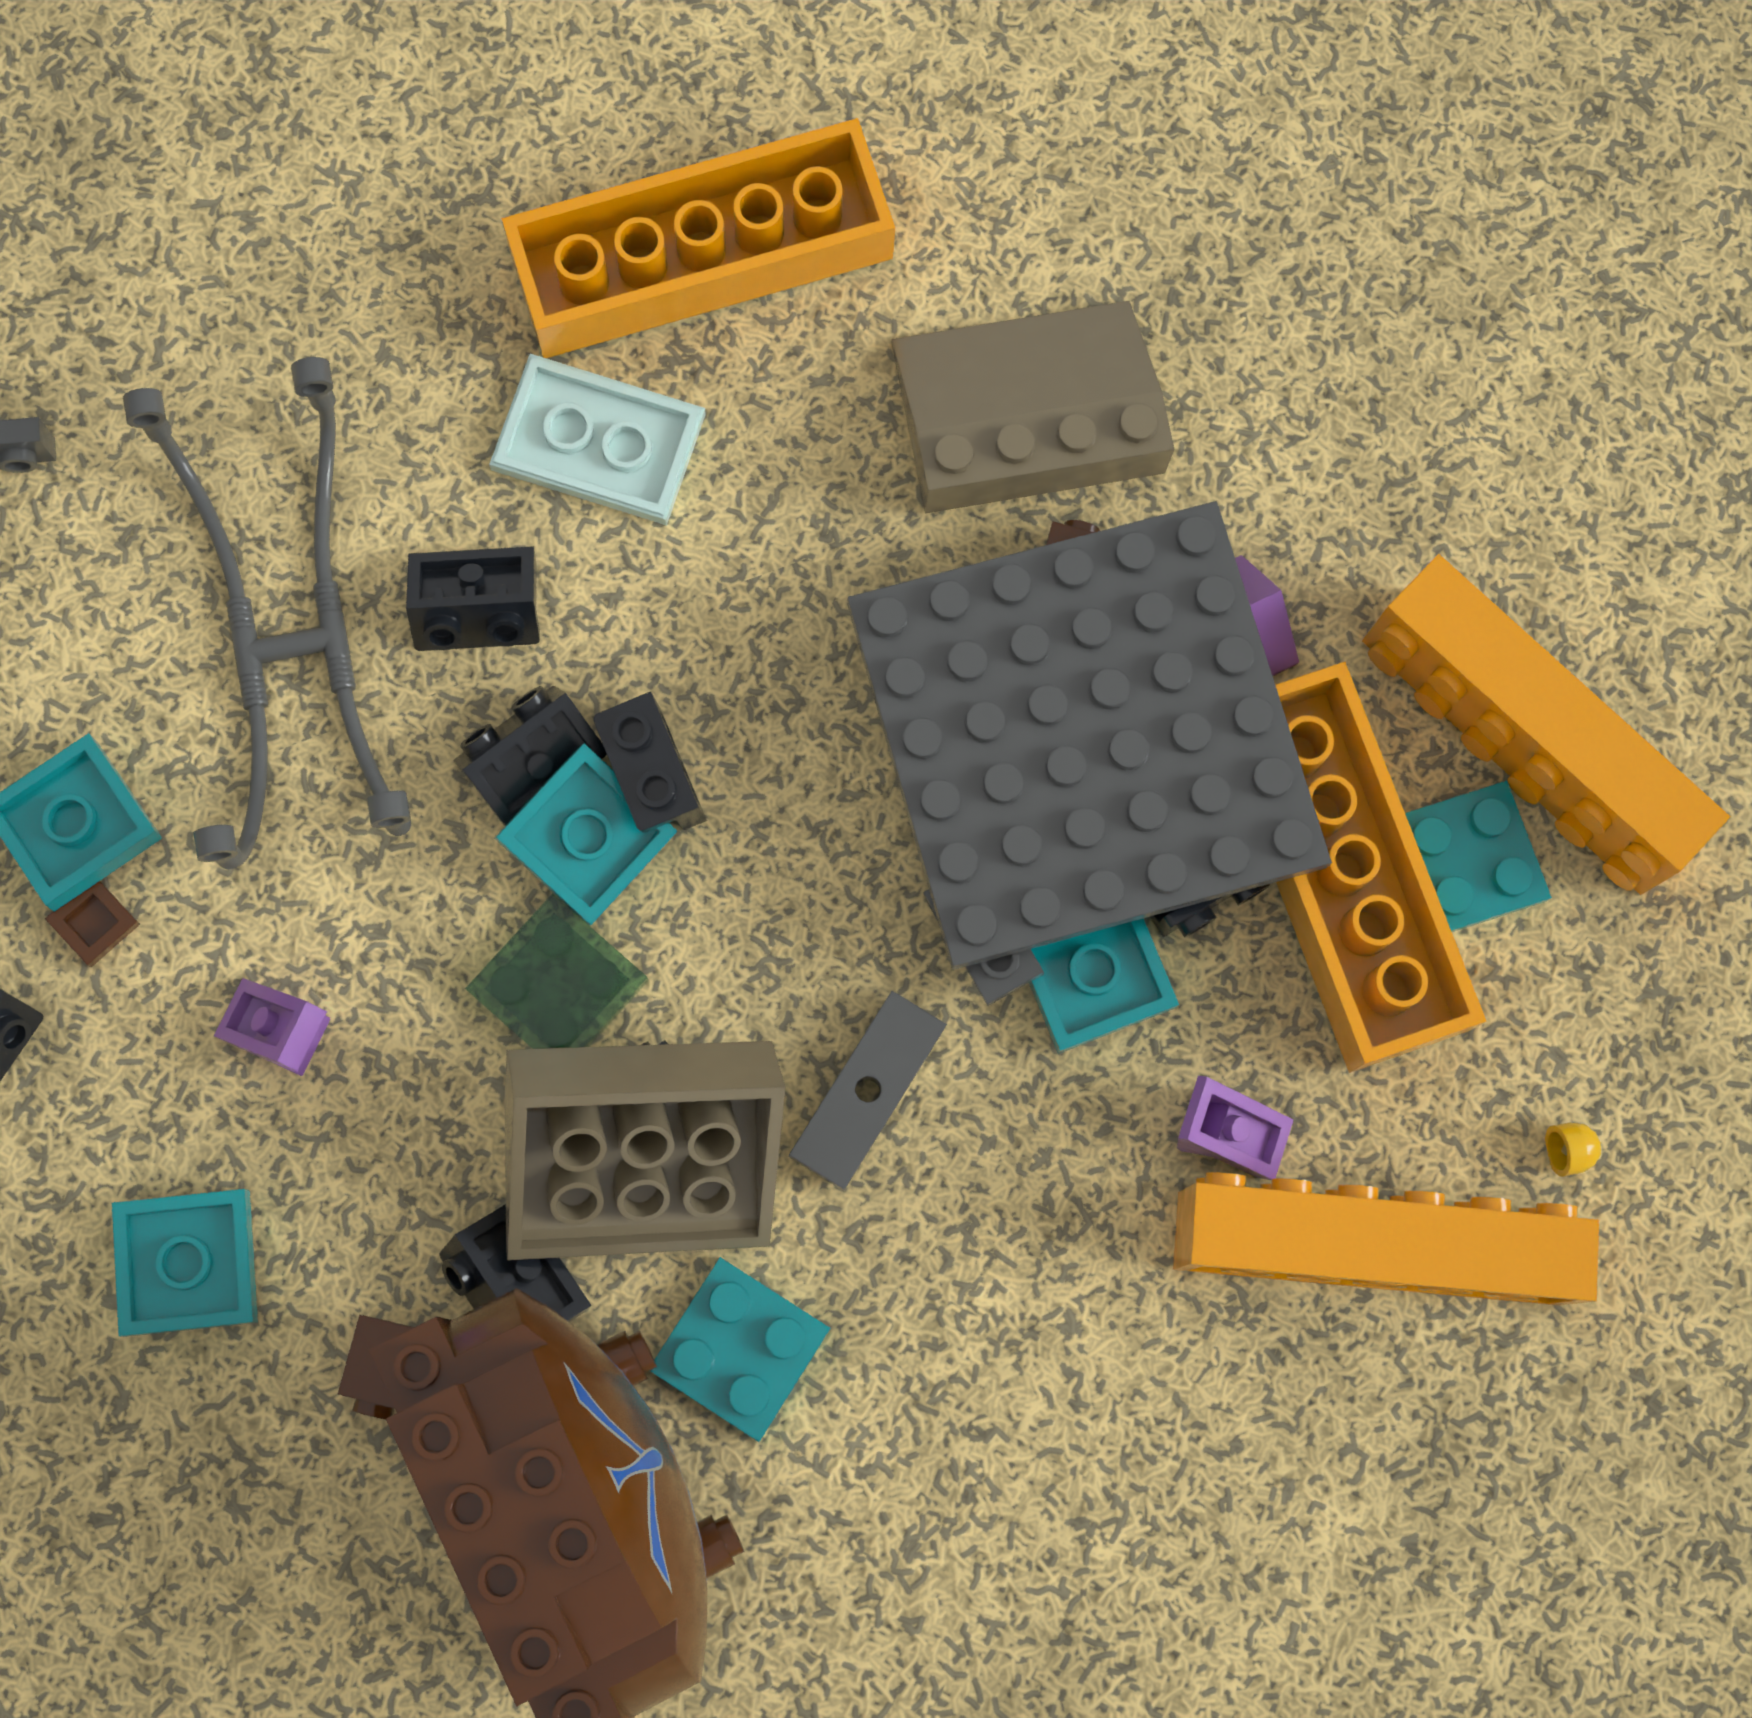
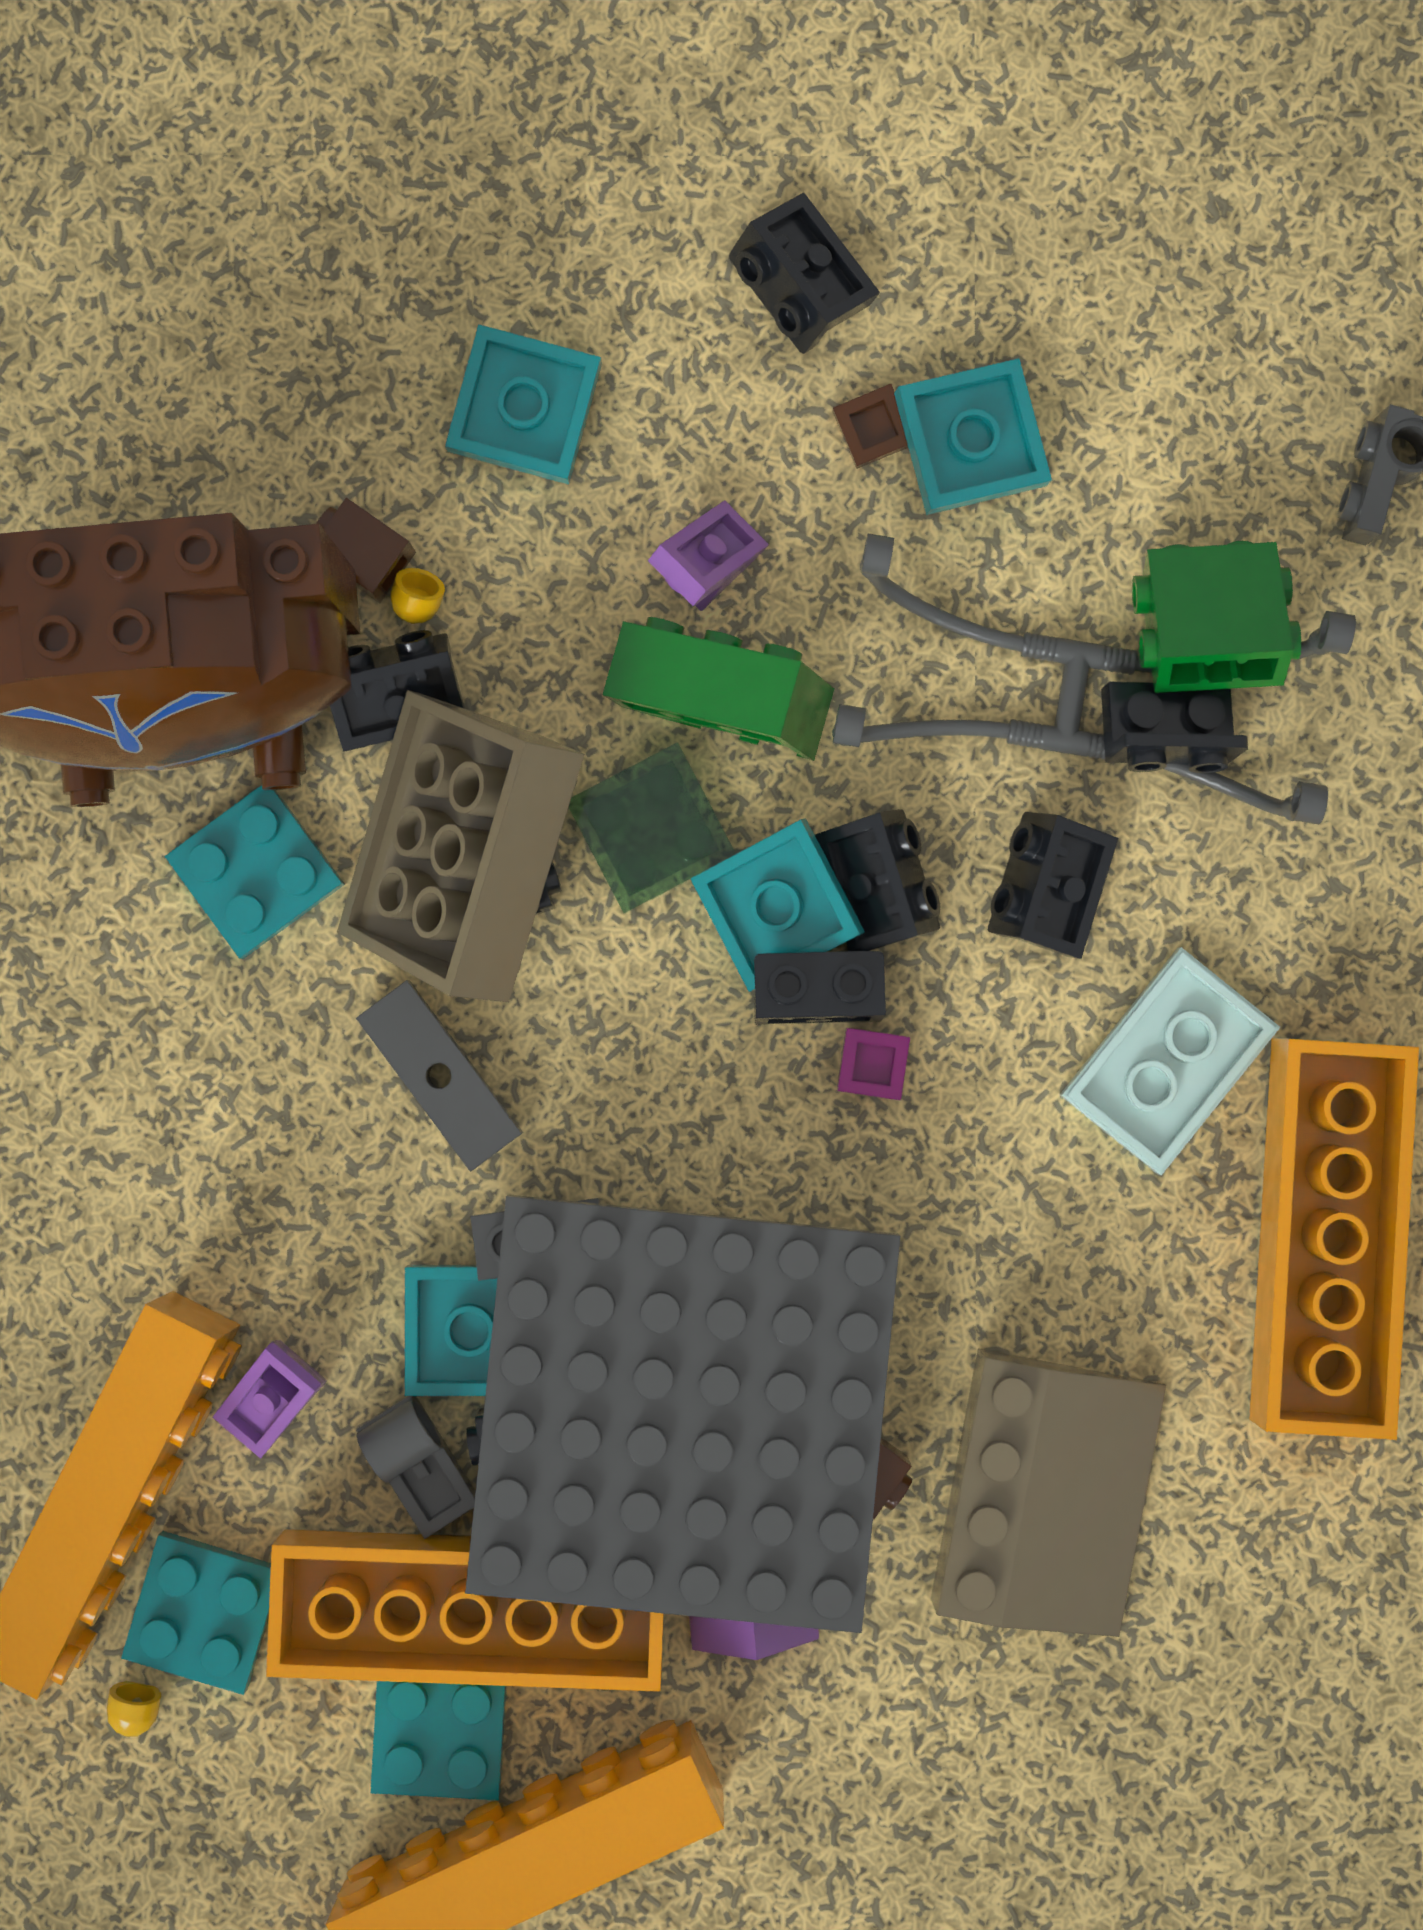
camera: 120 degrees right, 10 degrees up
(168, 535) = (1216, 617): none -> green brick
(284, 544) = (1169, 728): none -> black bracket
(395, 968) = (719, 685): none -> green wedge
(411, 1293) = (416, 595): none -> yellow hinge
(701, 696) = (873, 1064): none -> magenta plate
(1237, 969) = (418, 1464): none -> dark grey plate
(1457, 1119) = (200, 1613): none -> teal plate

